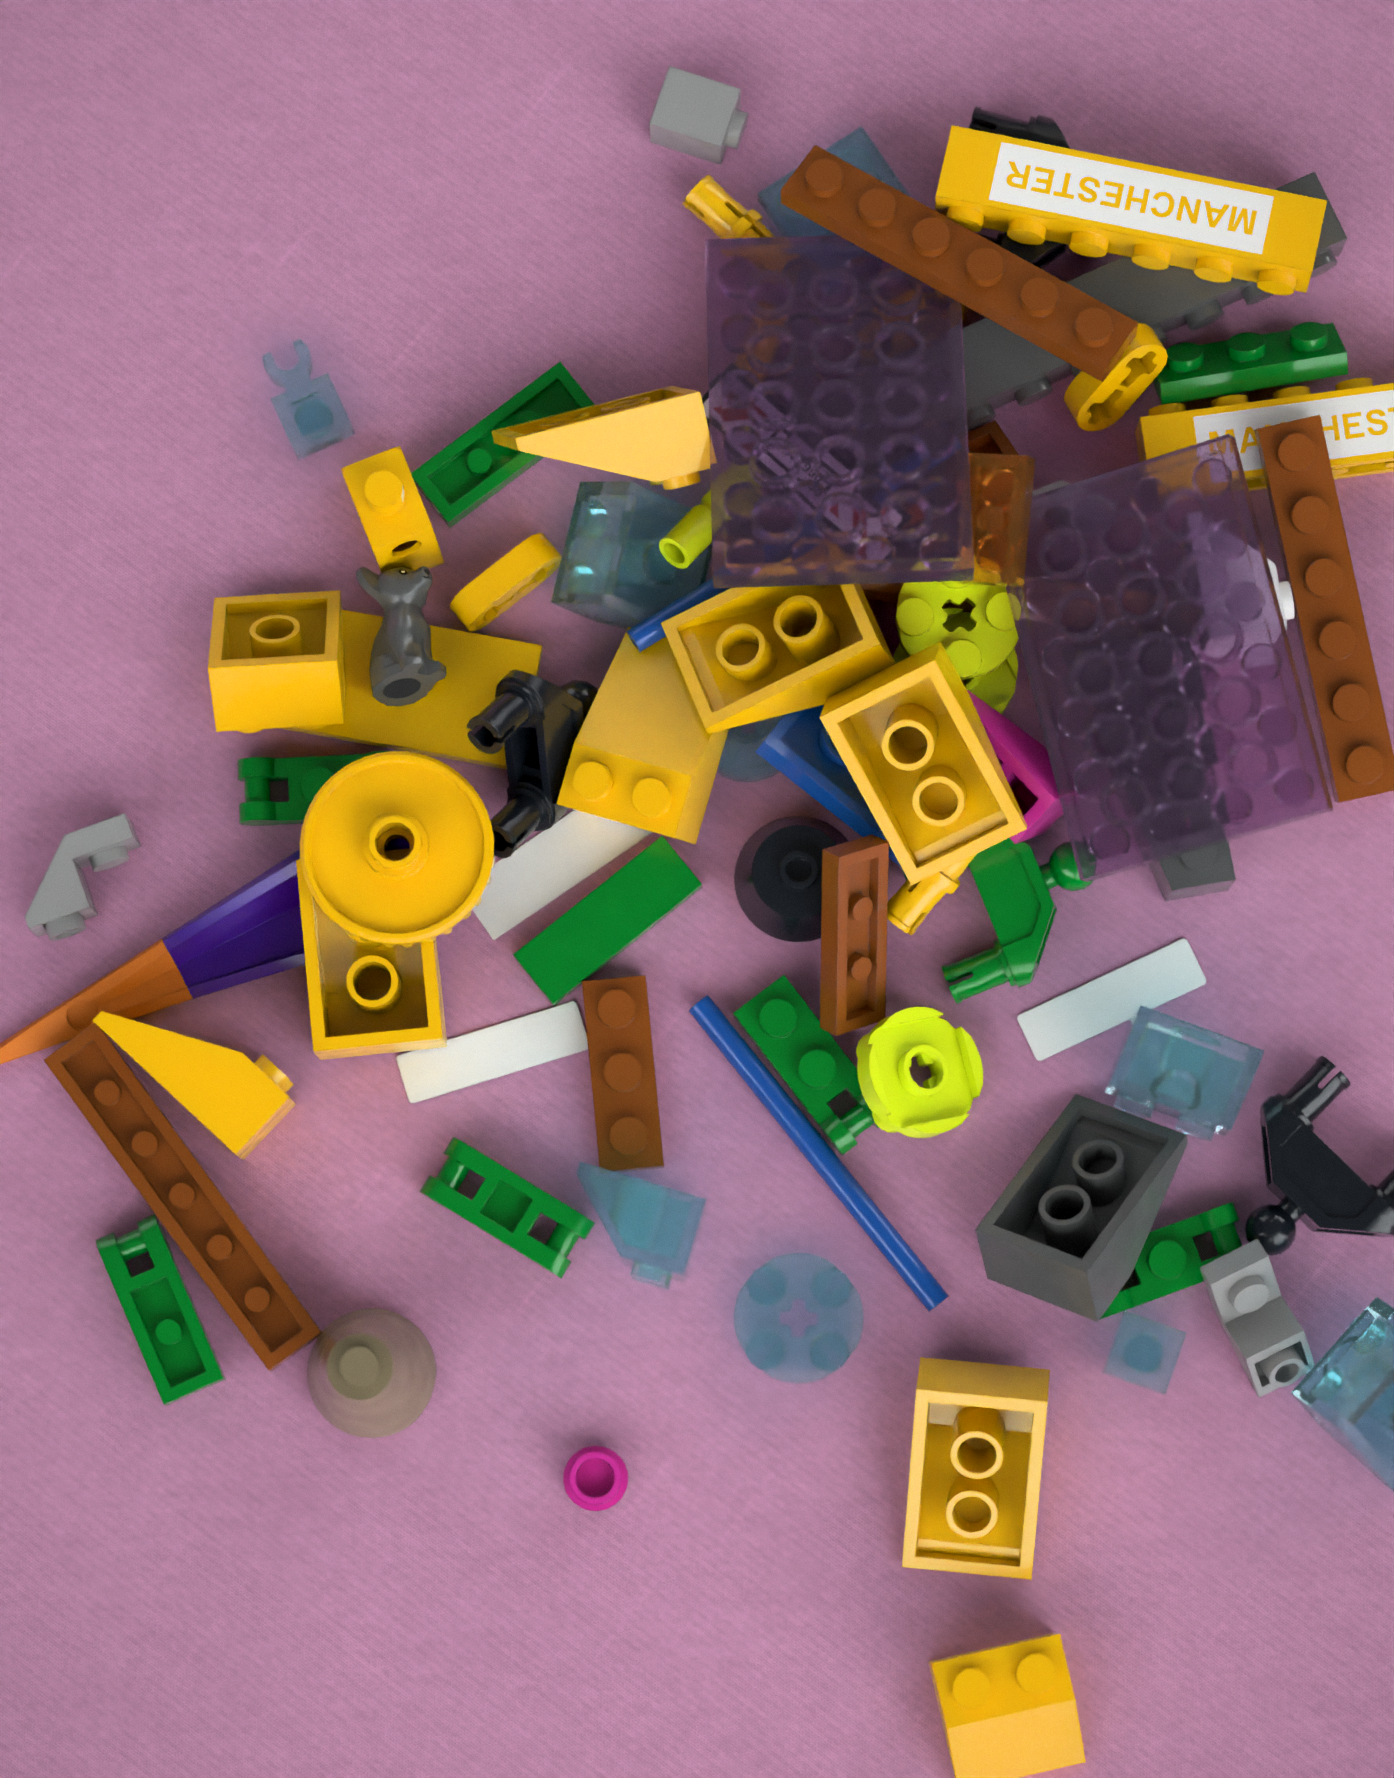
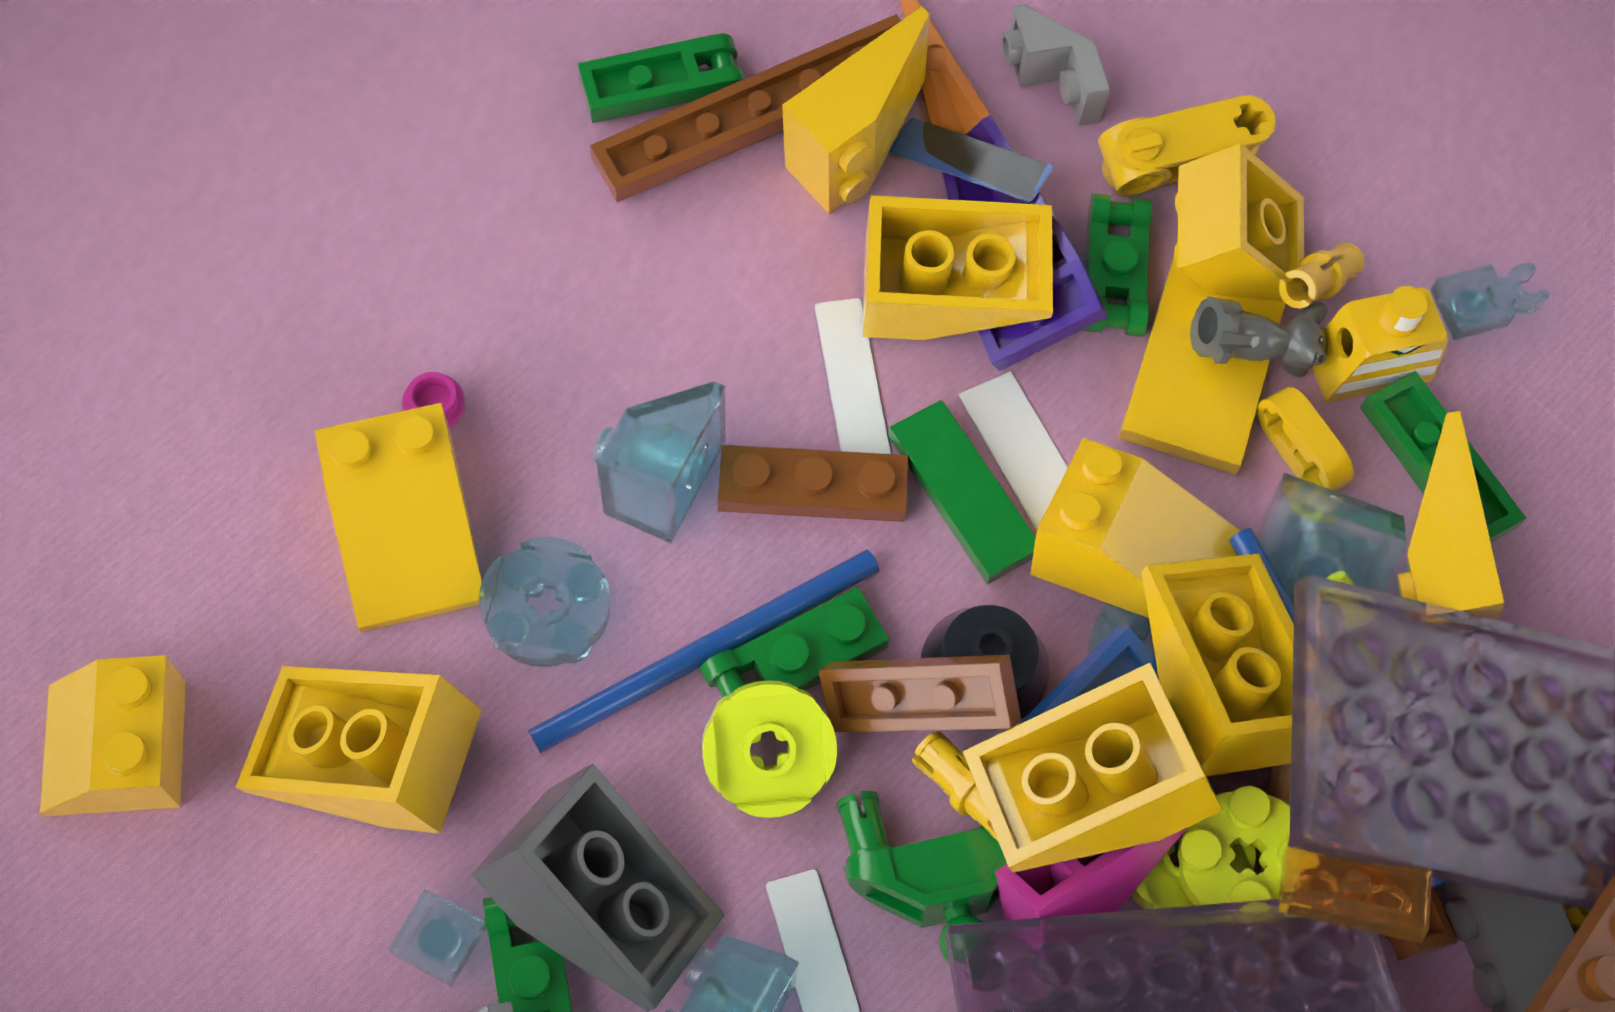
camera: 90 degrees right, 15 degrees down
(171, 728) = (1149, 150): none -> yellow piece
(222, 954) = (971, 159): none -> sticker
(317, 574) = (1321, 275): none -> yellow pin
(371, 1373) = (571, 220): dark tan cone -> none
(386, 800) = (1053, 278): yellow wheel -> none
(507, 1207) = (704, 352): green plate -> none
(538, 733) = (1158, 430): black connector -> none
(735, 1478) = (400, 516): none -> yellow slope

